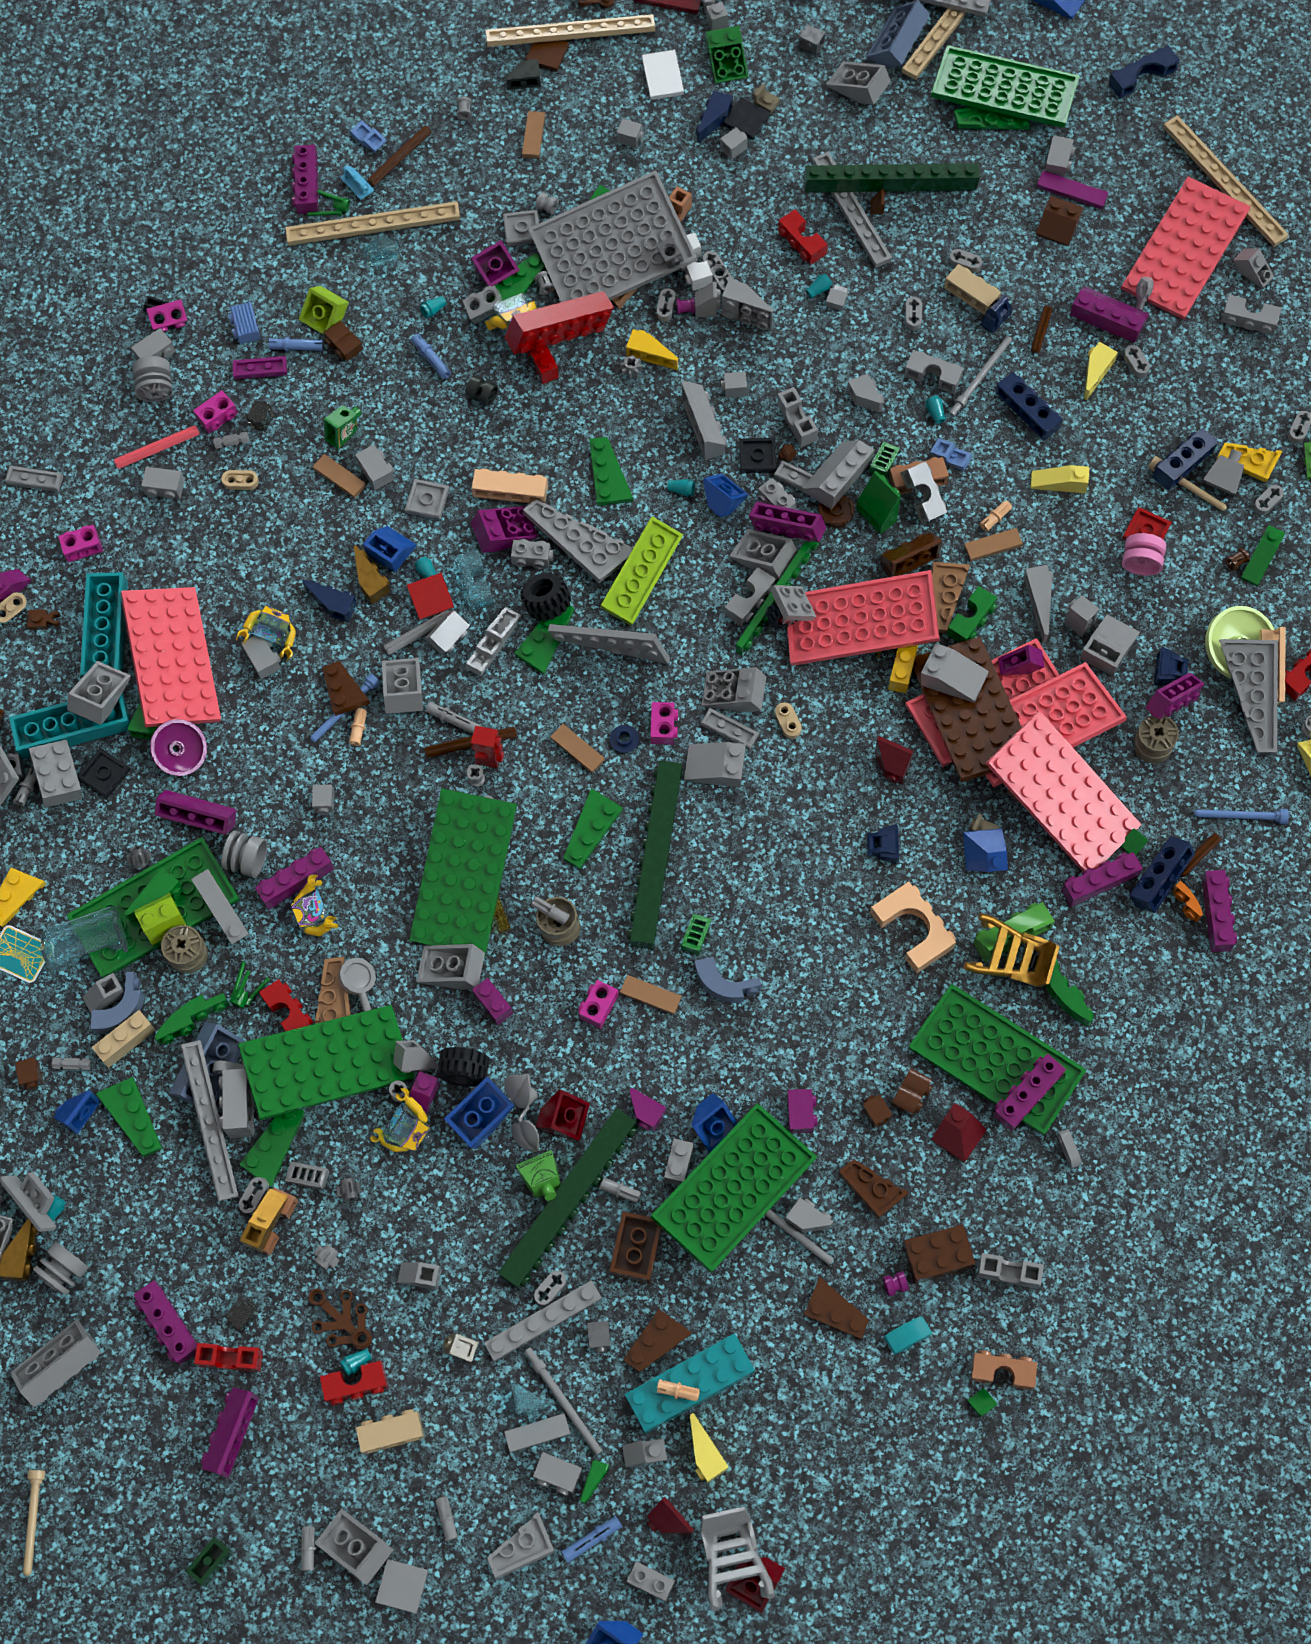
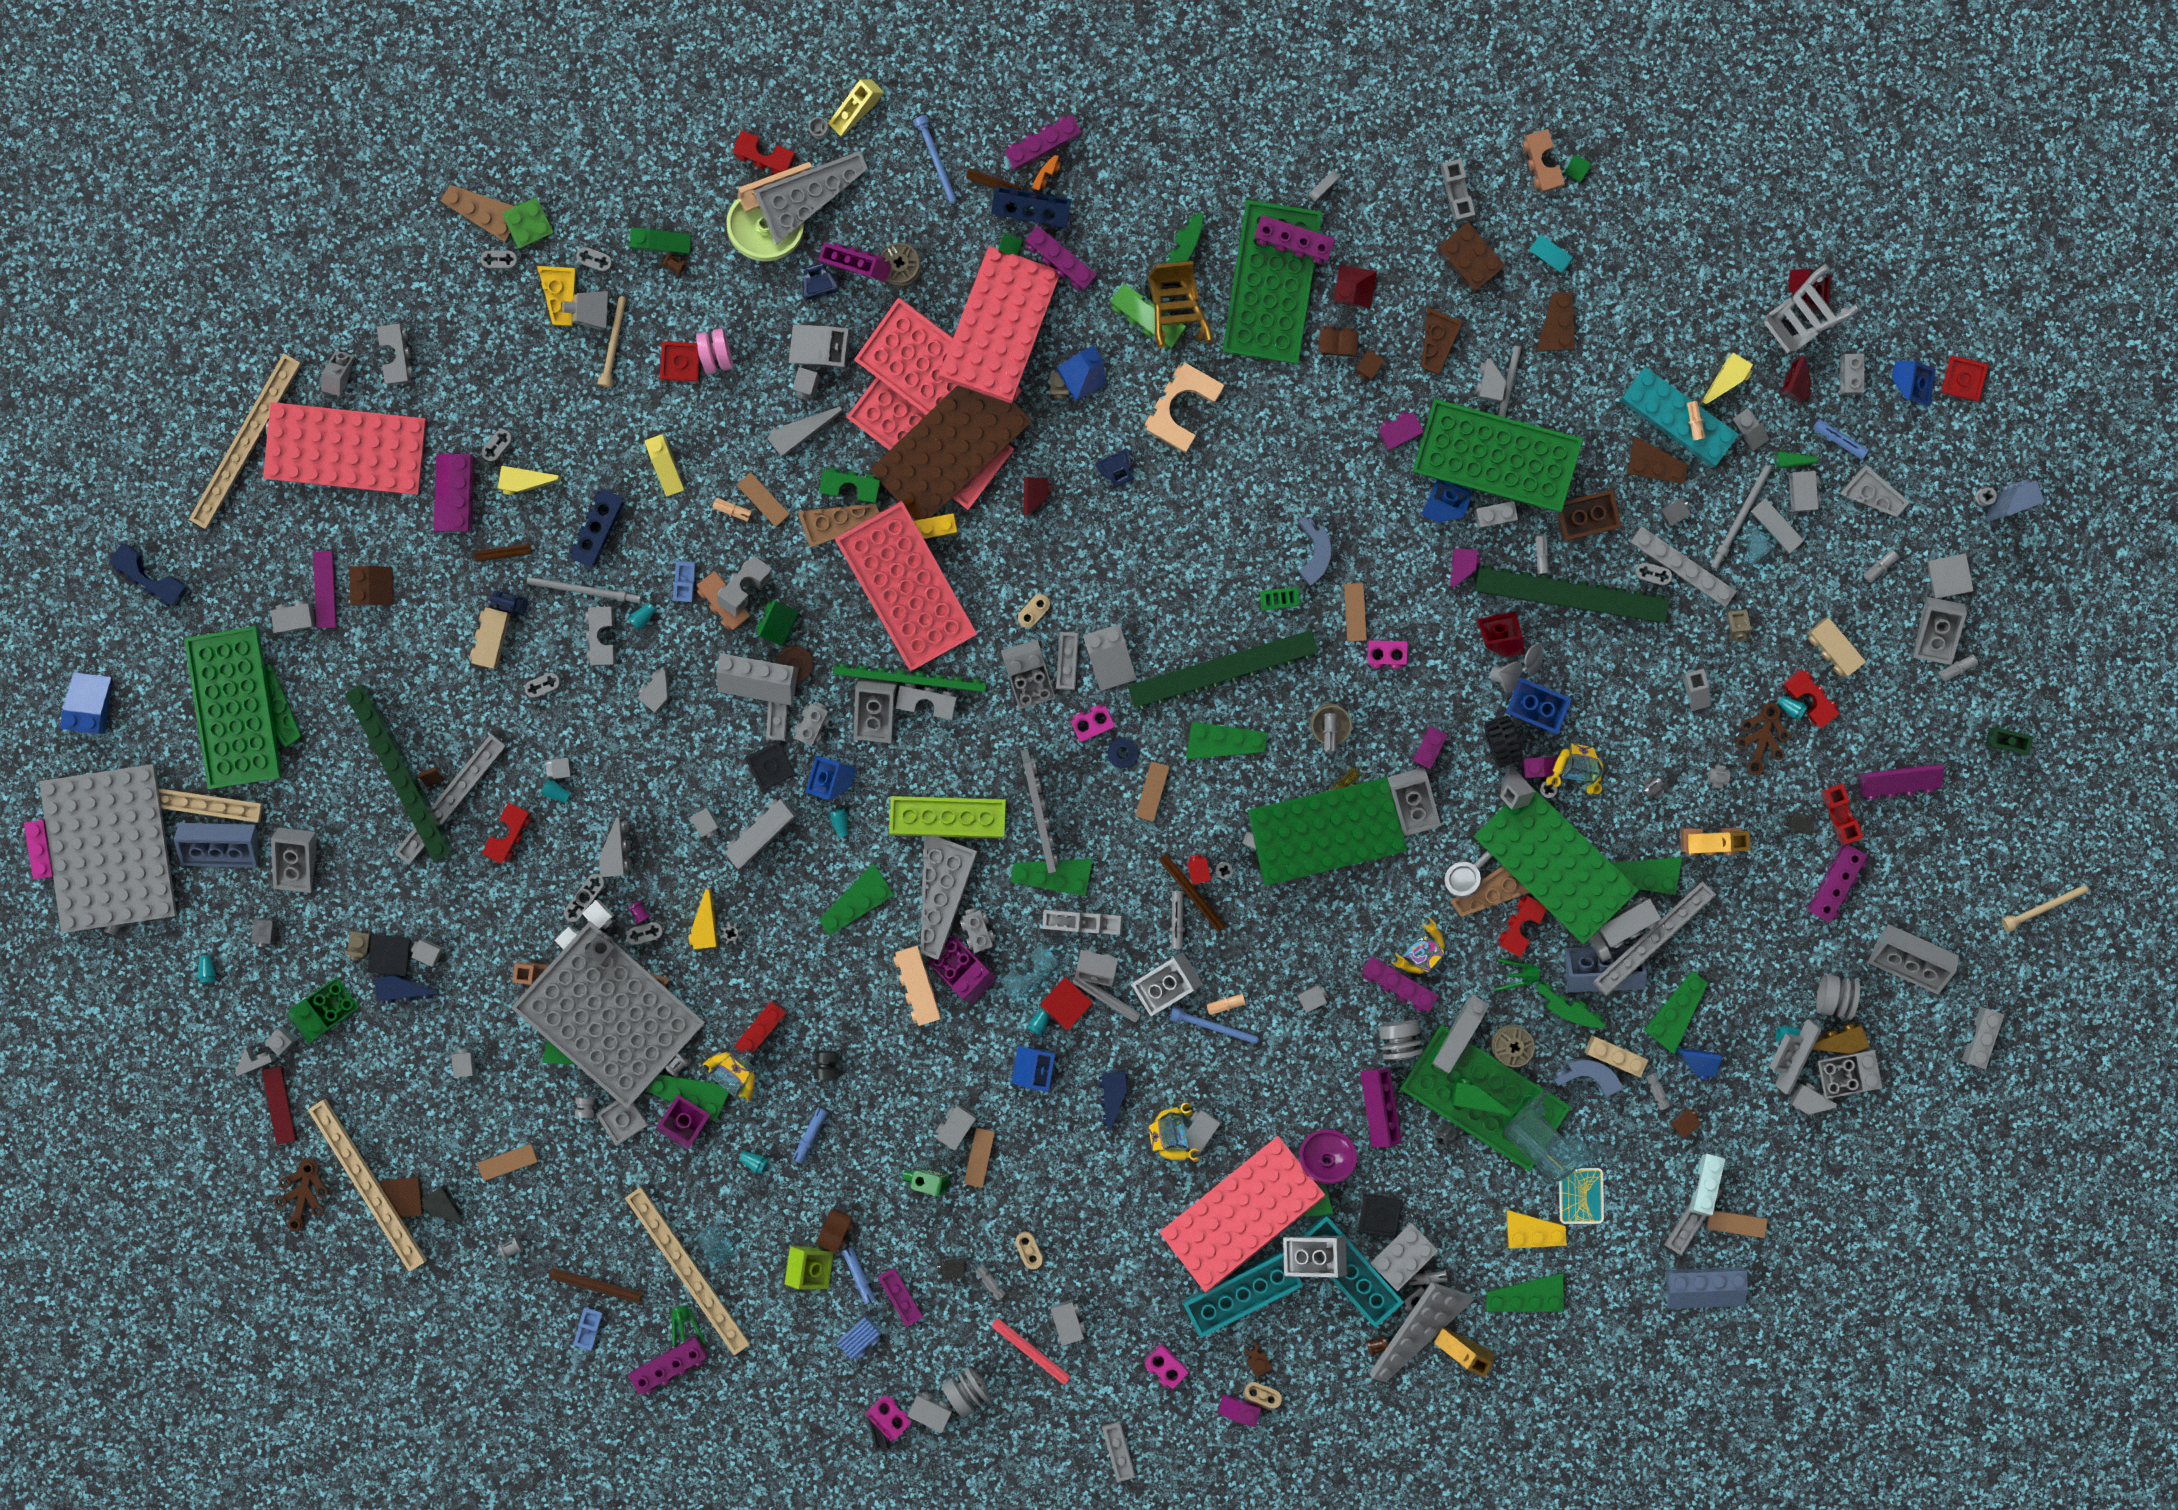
camera: 120 degrees left, 20 degrees up
(104, 993) = (1584, 1096): light grey slope -> none
(159, 917) = (1498, 1081): lime slope -> none
(213, 409) = (966, 1318): dark pink brick -> none
(250, 1192) = (1696, 863): light grey beam -> none
(321, 1181) = (1647, 817): light grey slope -> none
(342, 689) = (1198, 1036): reddish brown wing -> none
(356, 182) = (647, 1312): medium azure hinge -> none
(370, 581) = (1077, 1069): pearl gold slope -> none
(427, 499) = (964, 1060): light grey tile -> none
(485, 309) = (734, 1106): light grey brick -> none
(541, 1175) = (1564, 626): bright green torso -> none
(545, 596) = (1023, 879): black tyre -> none
(558, 322) = (728, 1020): red brick -> none
(662, 74) = (374, 1065): white tile -> none
(707, 301) = (626, 891): light grey slope -> none
(787, 453) = (755, 737): reddish brown plate -> none
(787, 522) = (837, 698): magenta brick -> none
(789, 606) = (928, 655): light grey plate -> none
(801, 426) = (716, 744): light grey arch -> none
(881, 470) = (734, 642): green slope -> none
(894, 1284) = (1512, 283): magenta wheel -> none
(911, 555) = (813, 572): reddish brown slope -> none
(953, 674) = (927, 473): light grey slope -> none
(965, 260) = (463, 660): light grey beam -> none
(1021, 661) = (880, 419): magenta slope -> none
(1143, 291) = (418, 468): light grey piece -> none
(1184, 459) = (565, 341): dark blue brick -> none

